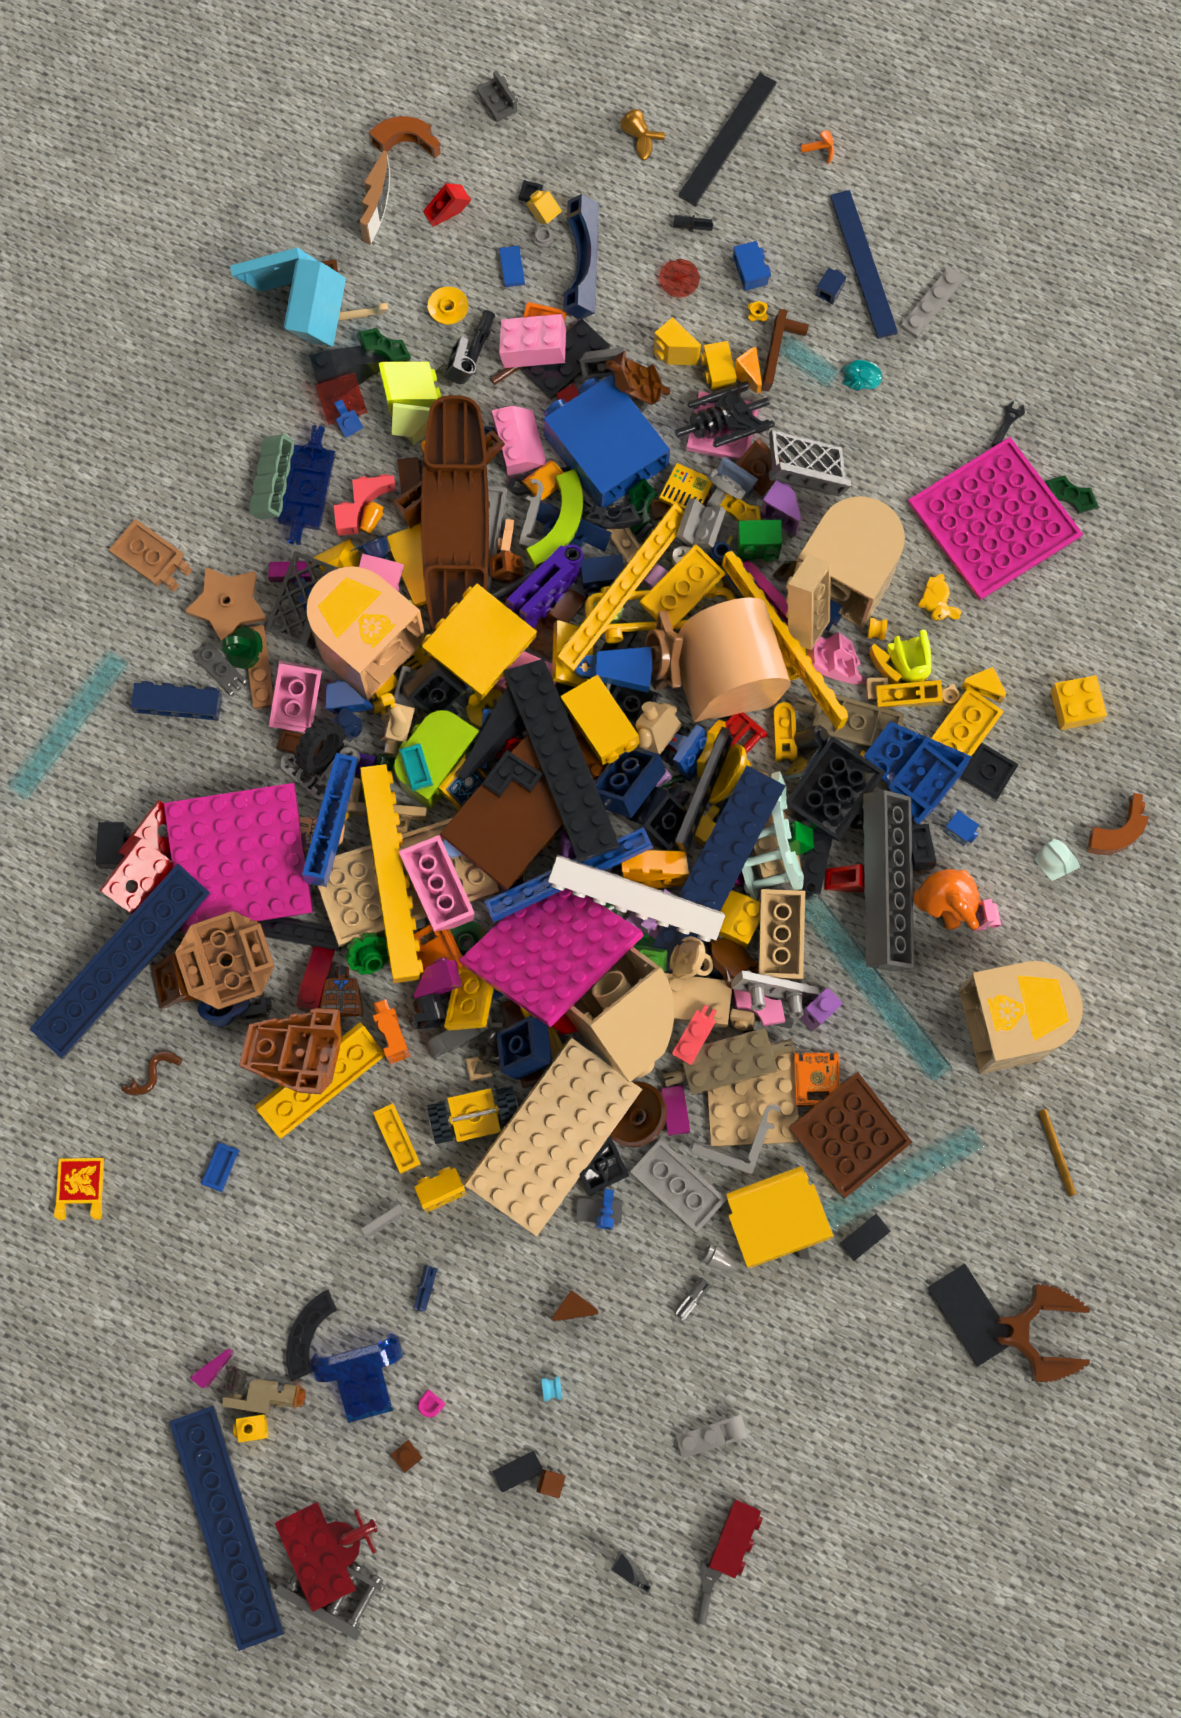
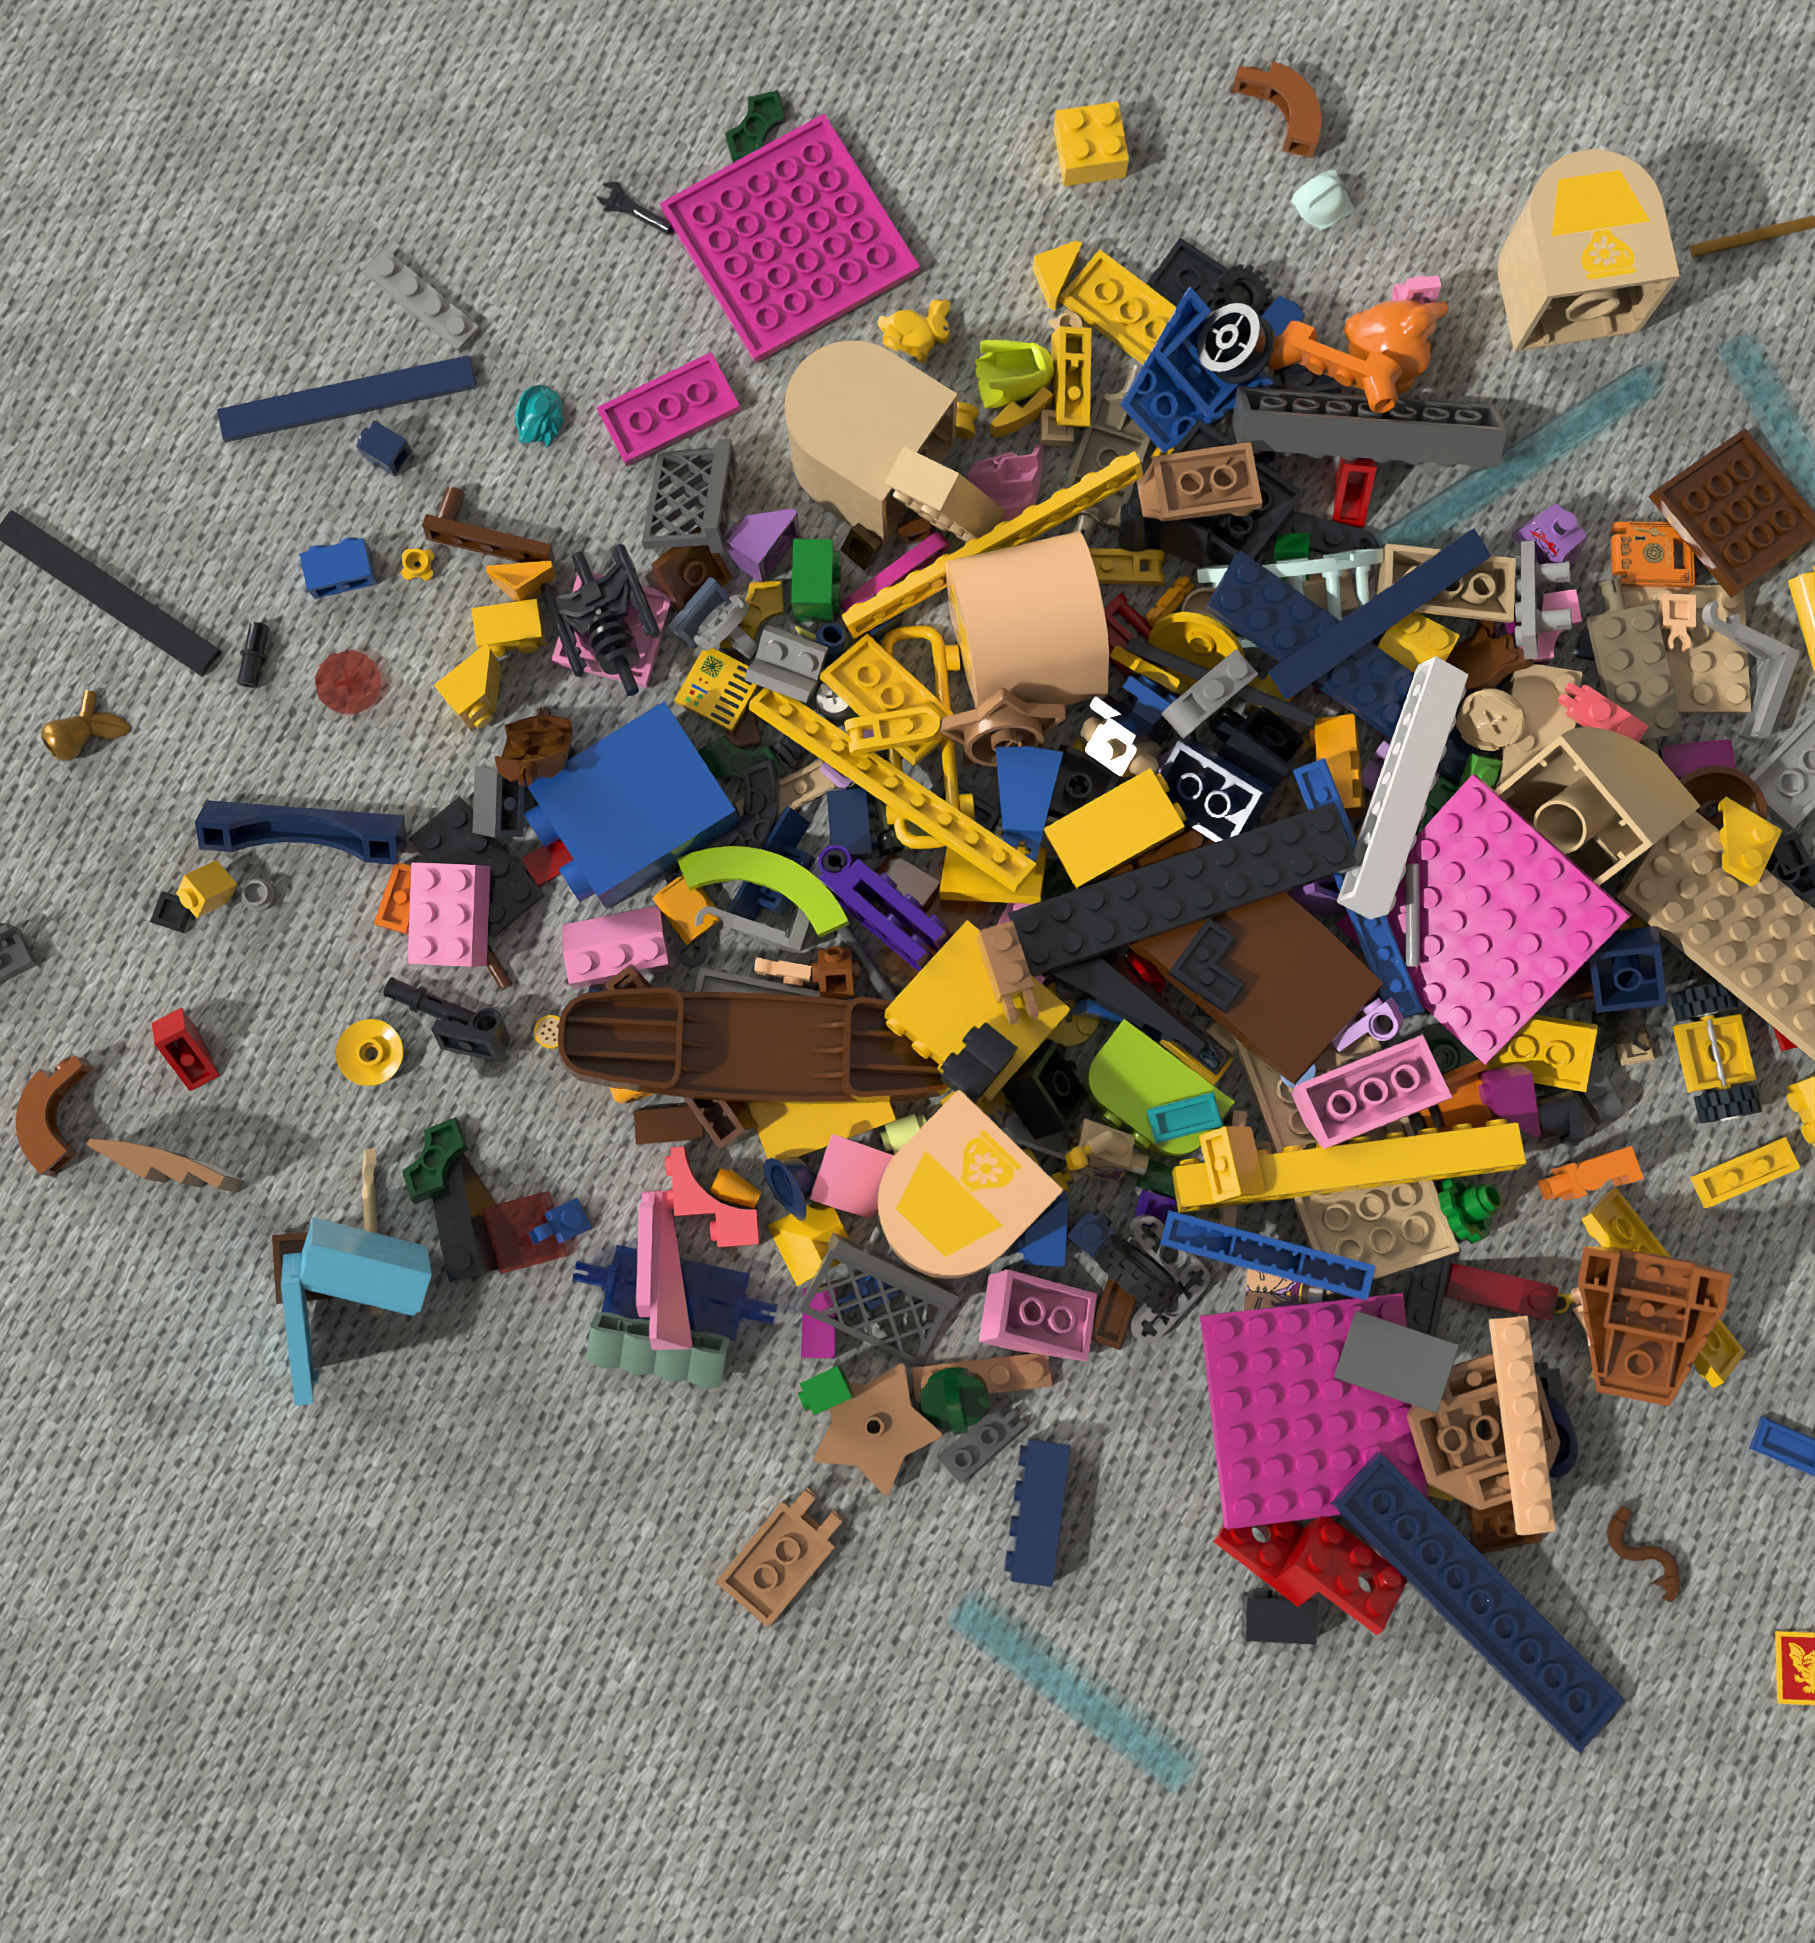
camera: 85 degrees left, 5 degrees up
(227, 977) = (1522, 1425): none -> light nougat plate
(247, 569) = (825, 1391): none -> green brick
(265, 899) = (1396, 1362): none -> dark grey tile
(315, 471) = (659, 1275): none -> bright pink wedge
(342, 994) = (1527, 1251): torso -> none
(387, 796) = (1232, 1163): none -> yellow panel
(409, 383) = (513, 1118): neon yellow slope -> none
(410, 421) = (579, 1116): yellowish green slope -> none
(443, 635) = (978, 1062): none -> black brick
(482, 889) = (1370, 1025): none -> lavender plate
(503, 651) = (1007, 969): none -> medium nougat hinge
(512, 266) = (304, 947): blue tile -> none
(550, 907) = (1412, 914): none -> light grey bar
(614, 1129) = (1745, 842): none -> yellow wing
(658, 584) = (892, 729): none -> yellow plate
(670, 727) = (1122, 721): none -> black tile
(691, 774) = (1209, 694): none -> light grey plate
(742, 1020) = (1569, 652): tan plate -> none
(753, 882) = (1379, 614): none -> dark blue tile
(761, 762) = (1170, 600): none -> light orange axle
(772, 1090) = (1677, 615): none -> light nougat plate
(809, 361) = (509, 490): clear light blue tile -> none
(826, 143) = (133, 436): orange plant -> none
(836, 770) = (1201, 483): none -> medium nougat slope
(871, 451) = (668, 409): none -> dark pink plate
(918, 877) = (1374, 376): none -> orange plate
(937, 791) = (1236, 343): none -> black wheel
(987, 792) = (1241, 277): none -> black tyre

